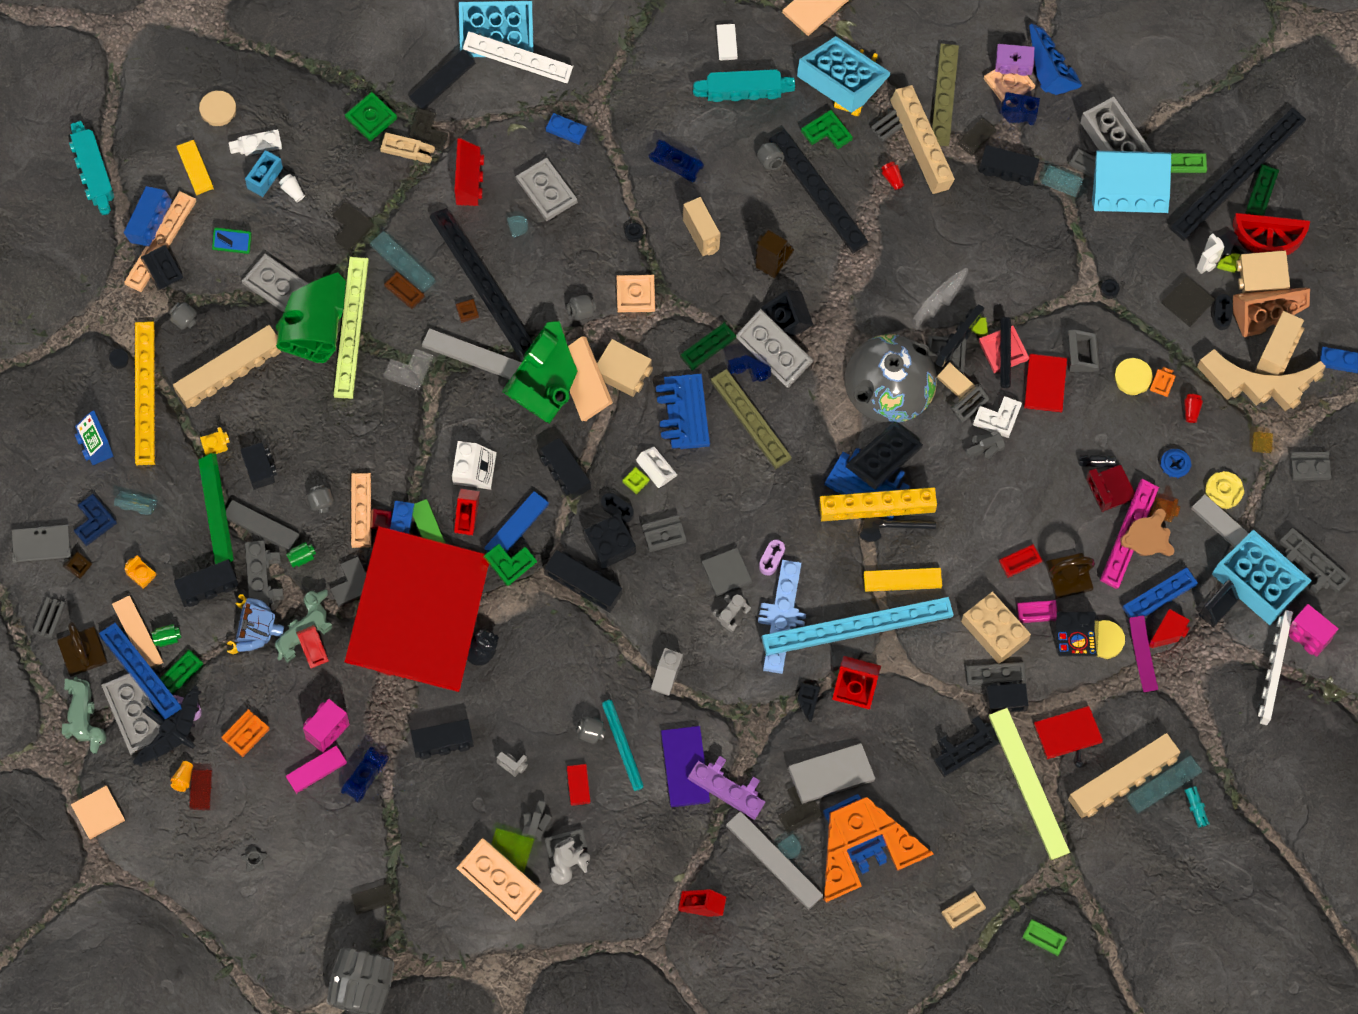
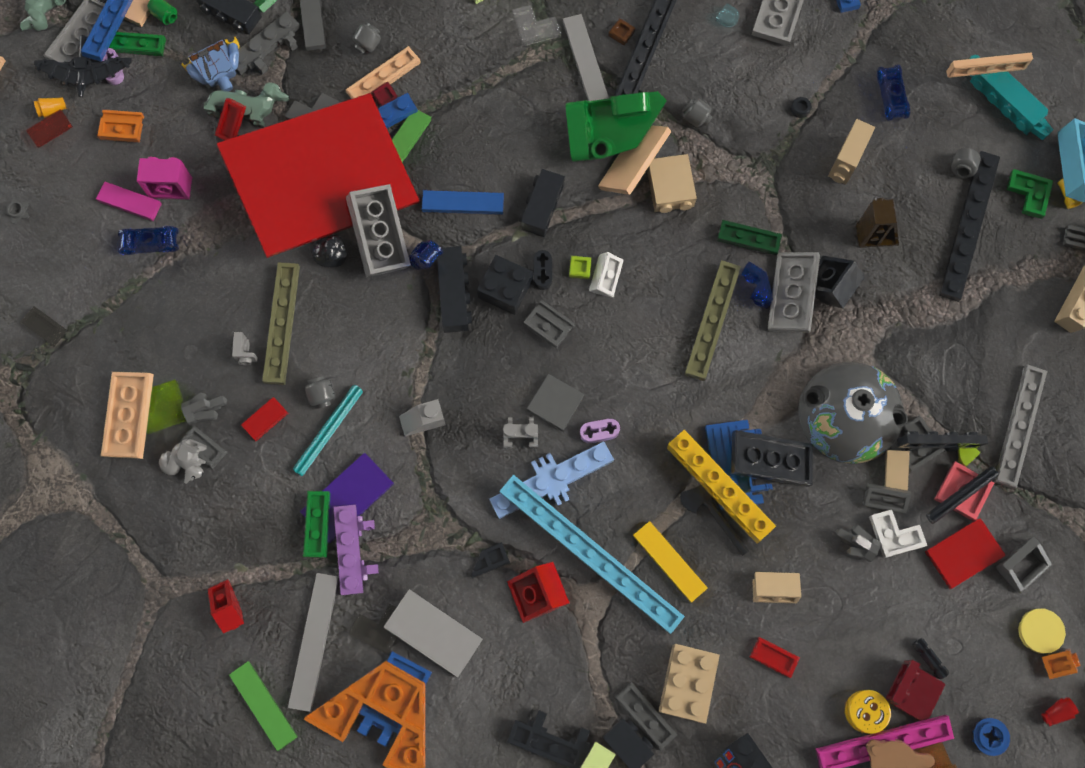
camera: 55 degrees right, 5 degrees up
(301, 555) = (307, 58): green brick -> none
(442, 739) = (223, 278): black brick -> none
(466, 511) = (443, 153): red slope -> none
(473, 465) = (487, 130): white slope -> none
(499, 598) = (378, 230): none -> light grey brick
(509, 568) = (418, 223): green plate -> none
(512, 722) = (281, 323): none -> olive plate
(544, 579) = (424, 254): none -> clear blue piece
(635, 293) = (748, 147): light nougat tile -> none
(686, 413) = (675, 265): blue hinge -> none
(690, 799) = (316, 524): none -> green tile
(713, 81) = (989, 65): none -> light nougat tile
(726, 42) = (1041, 53): white tile -> none
(790, 847) = (336, 646): clear light blue tile -> none
(794, 925) = (263, 706): none -> bright green tile
(893, 175) = (1040, 275): red cone -> none
(943, 294) = (969, 399): clear slope -> none
(975, 522) = (776, 587): none -> tan hinge
(987, 276) = (1020, 426): none -> light grey tile
(1037, 611) = (737, 710): dark pink tile -> none
(1070, 574) = (798, 716): dark brown tile -> none
(1101, 528) = (867, 711): none -> yellow head

